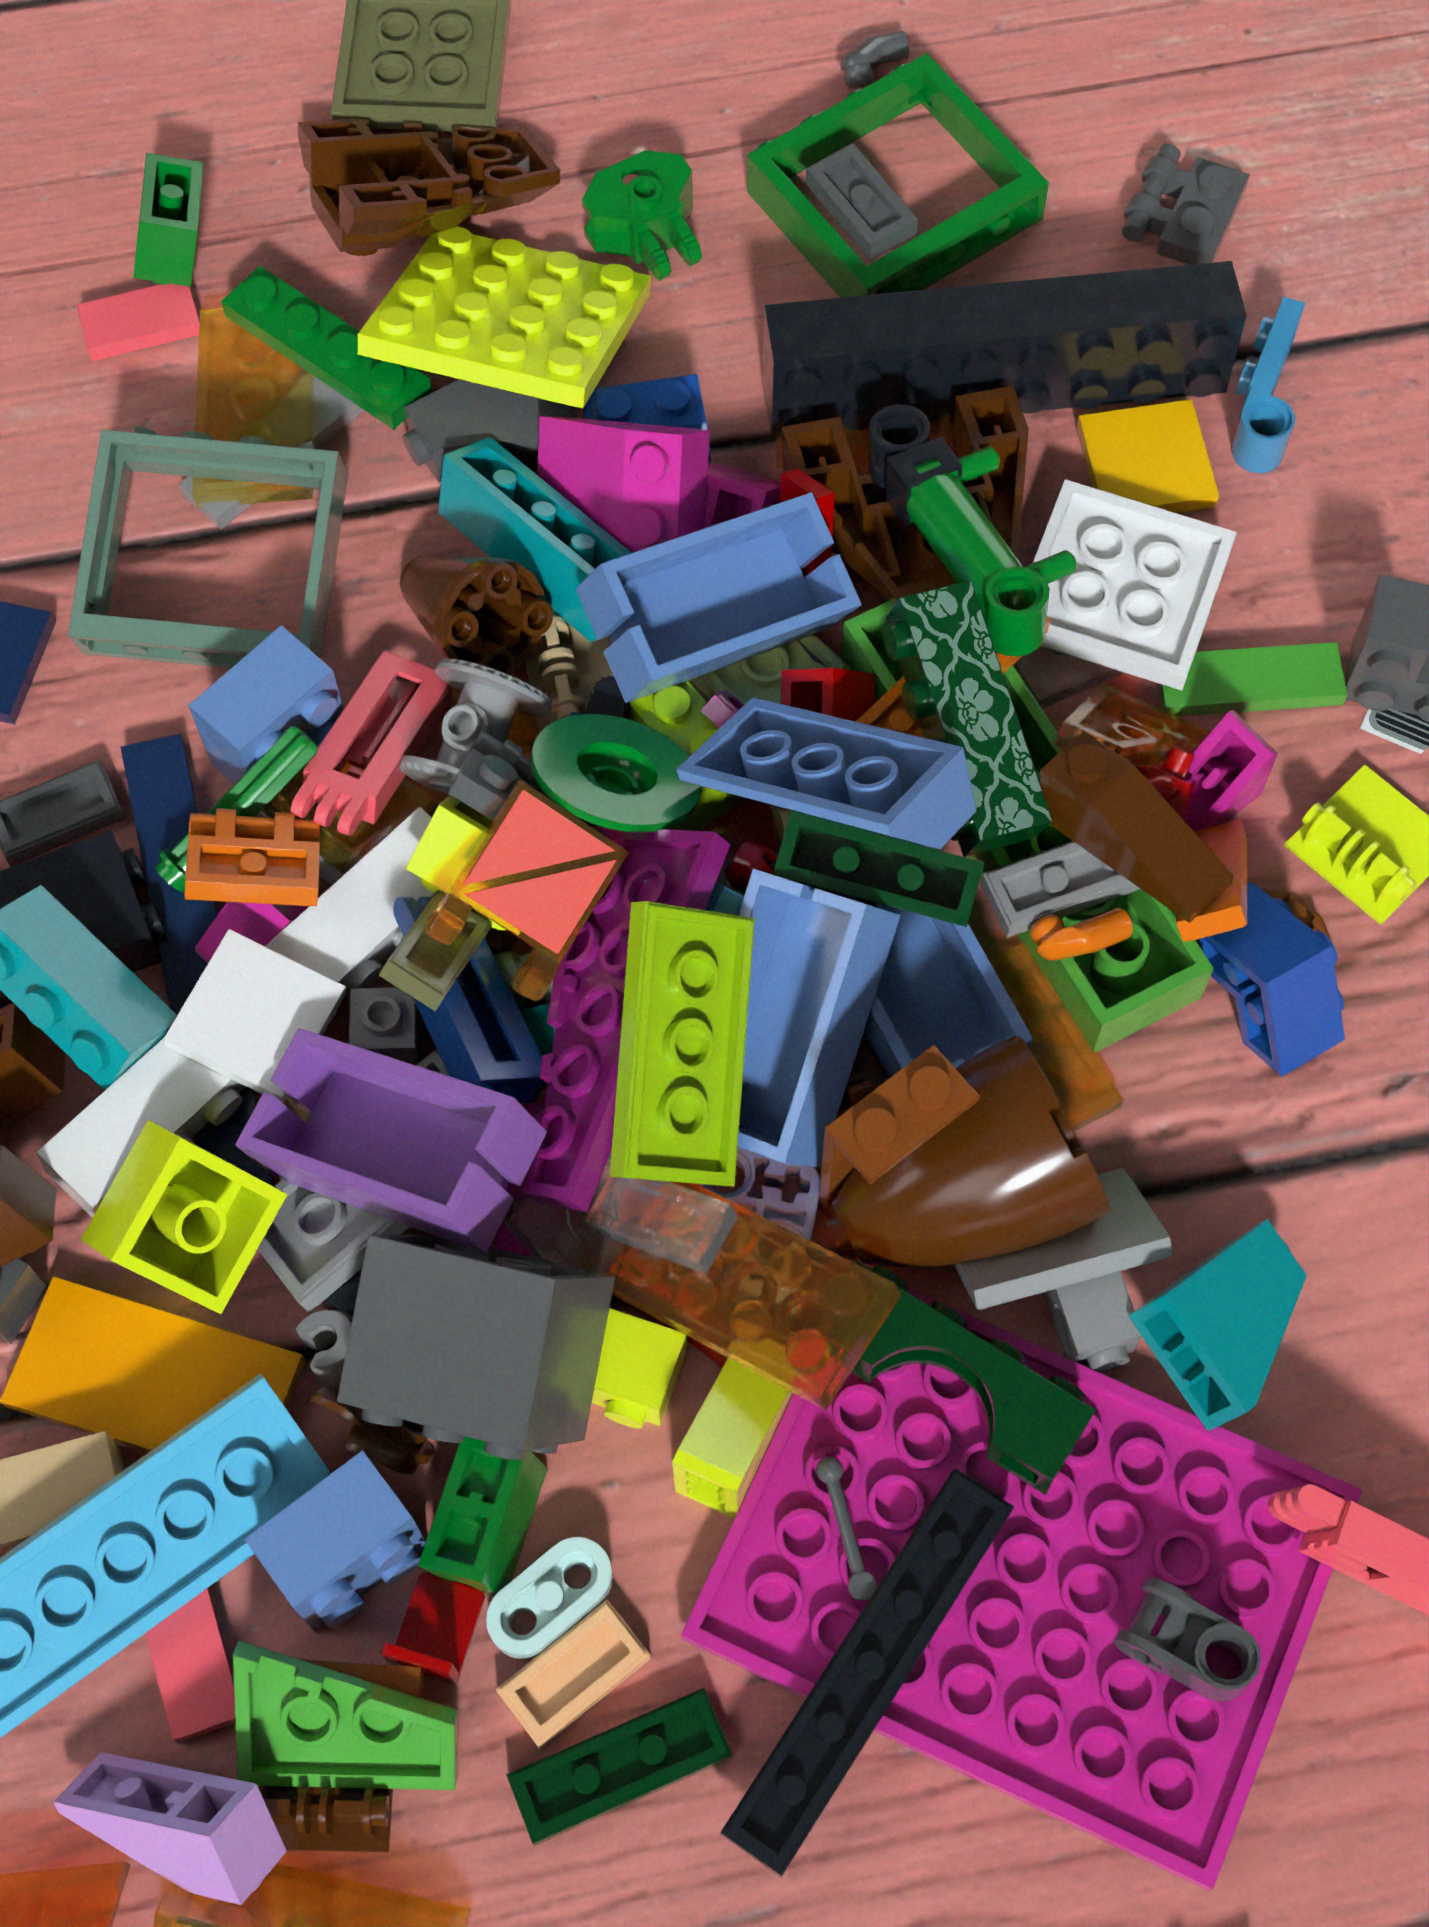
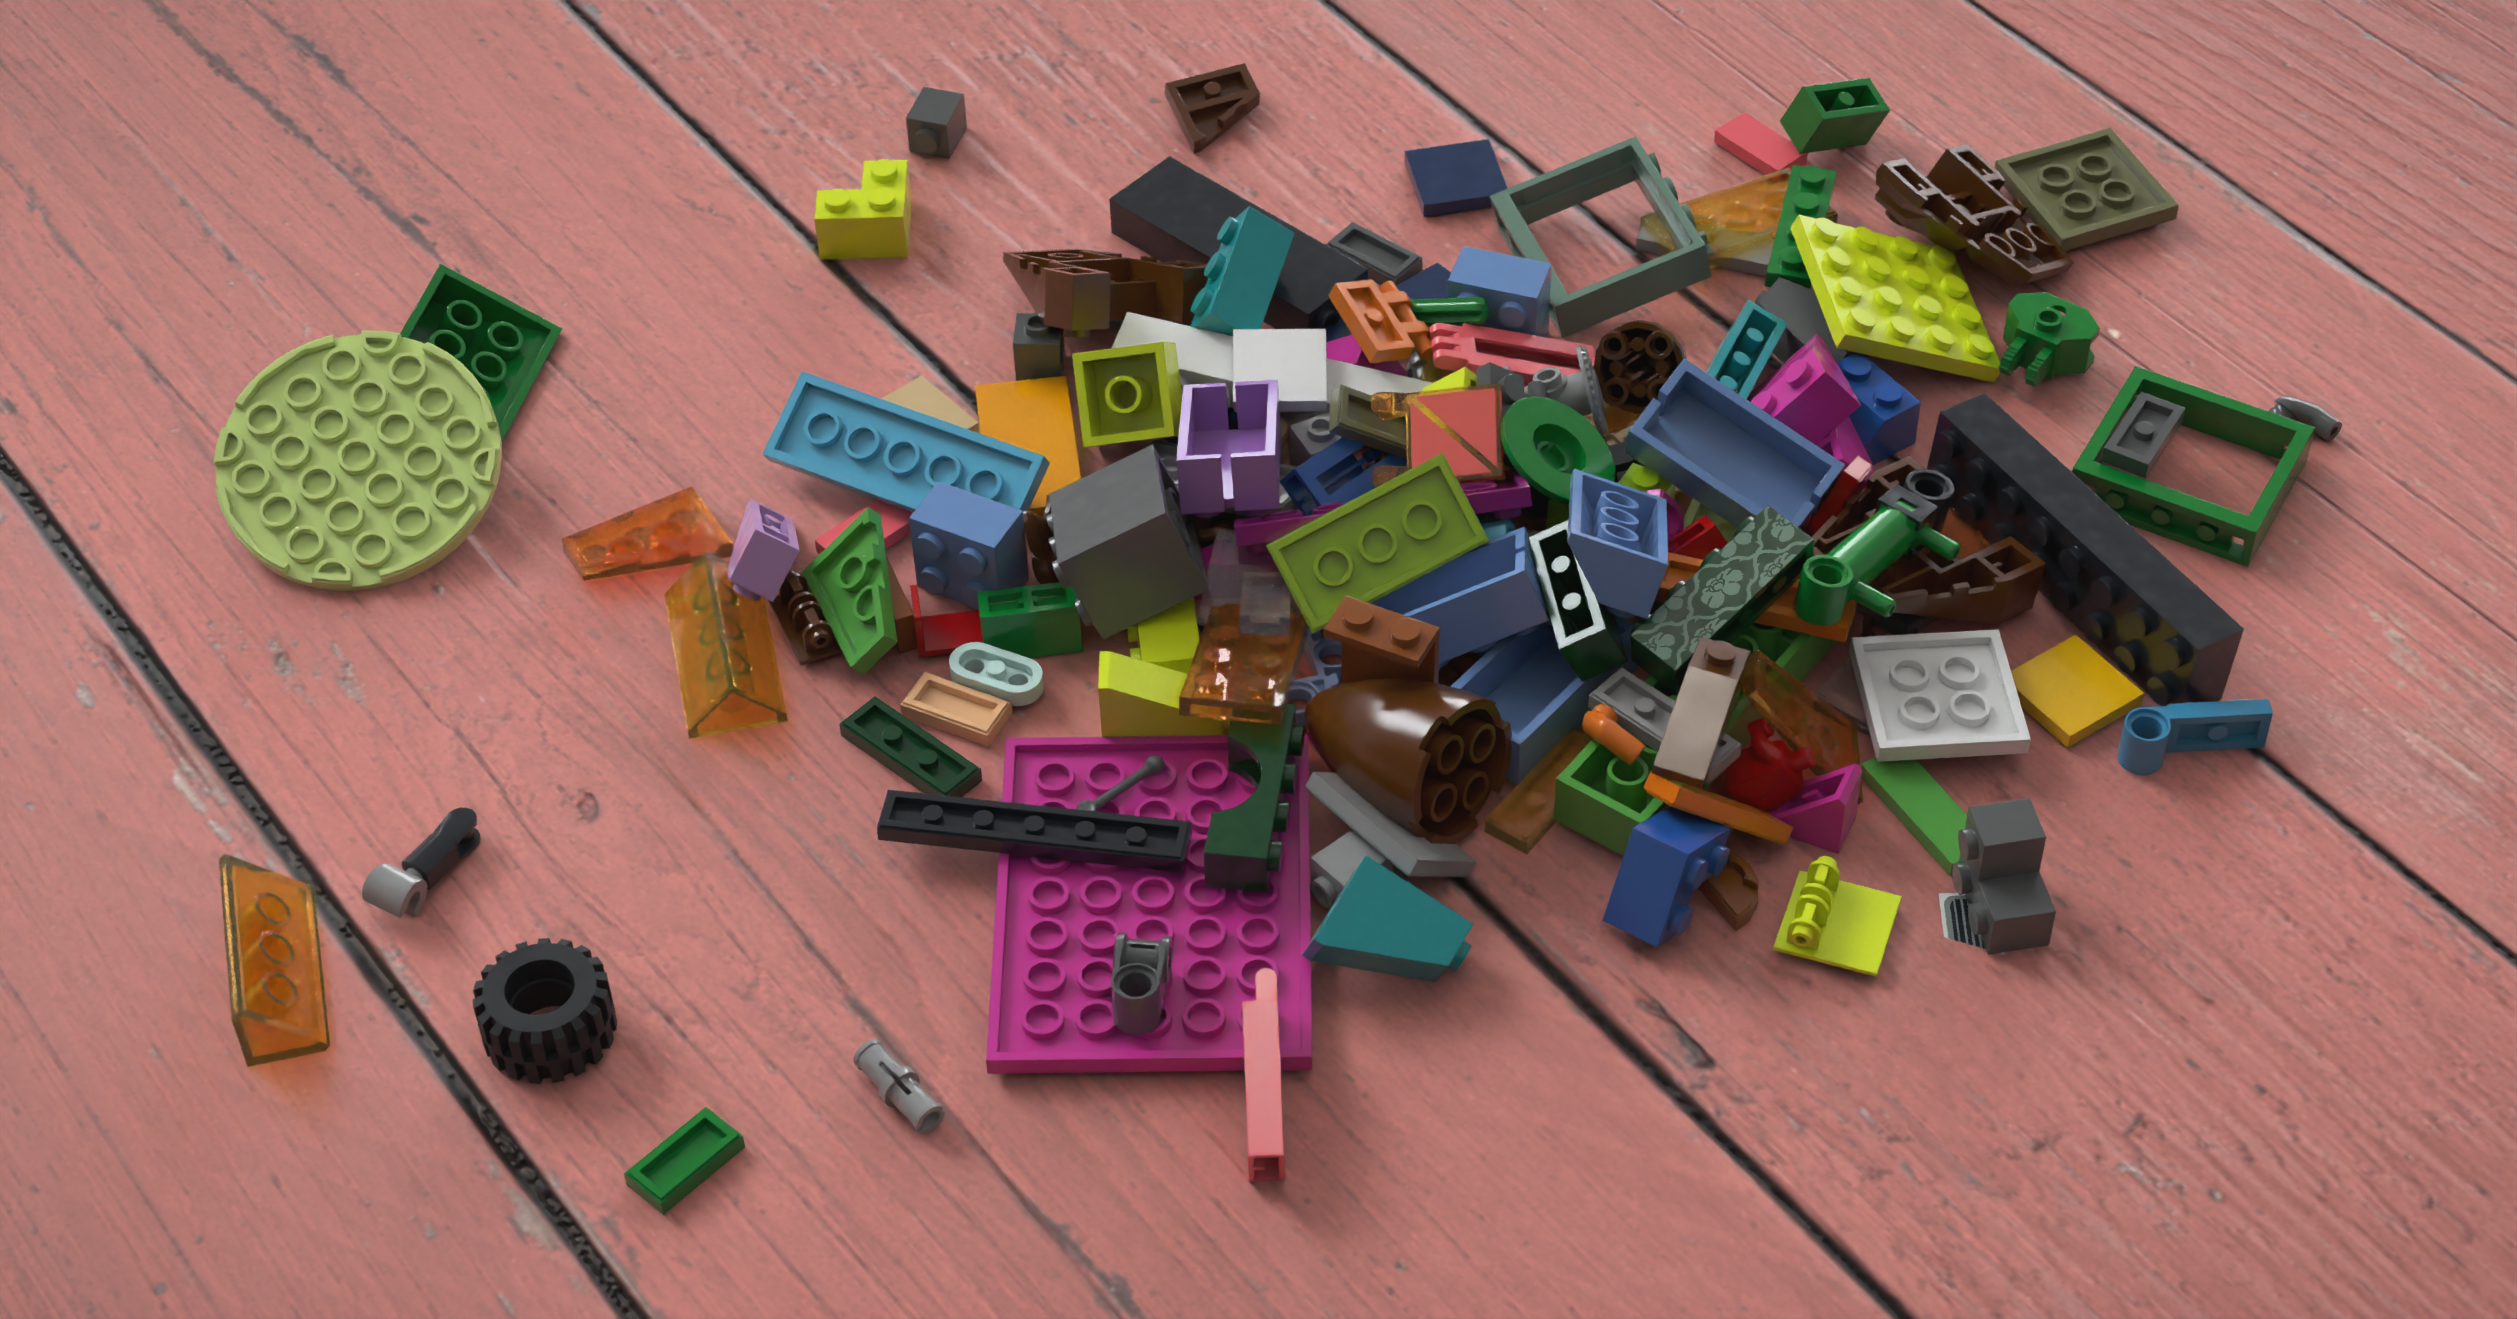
camera: 65 degrees right, 20 degrees down
(1201, 214) = (2331, 649): dark grey plate -> none

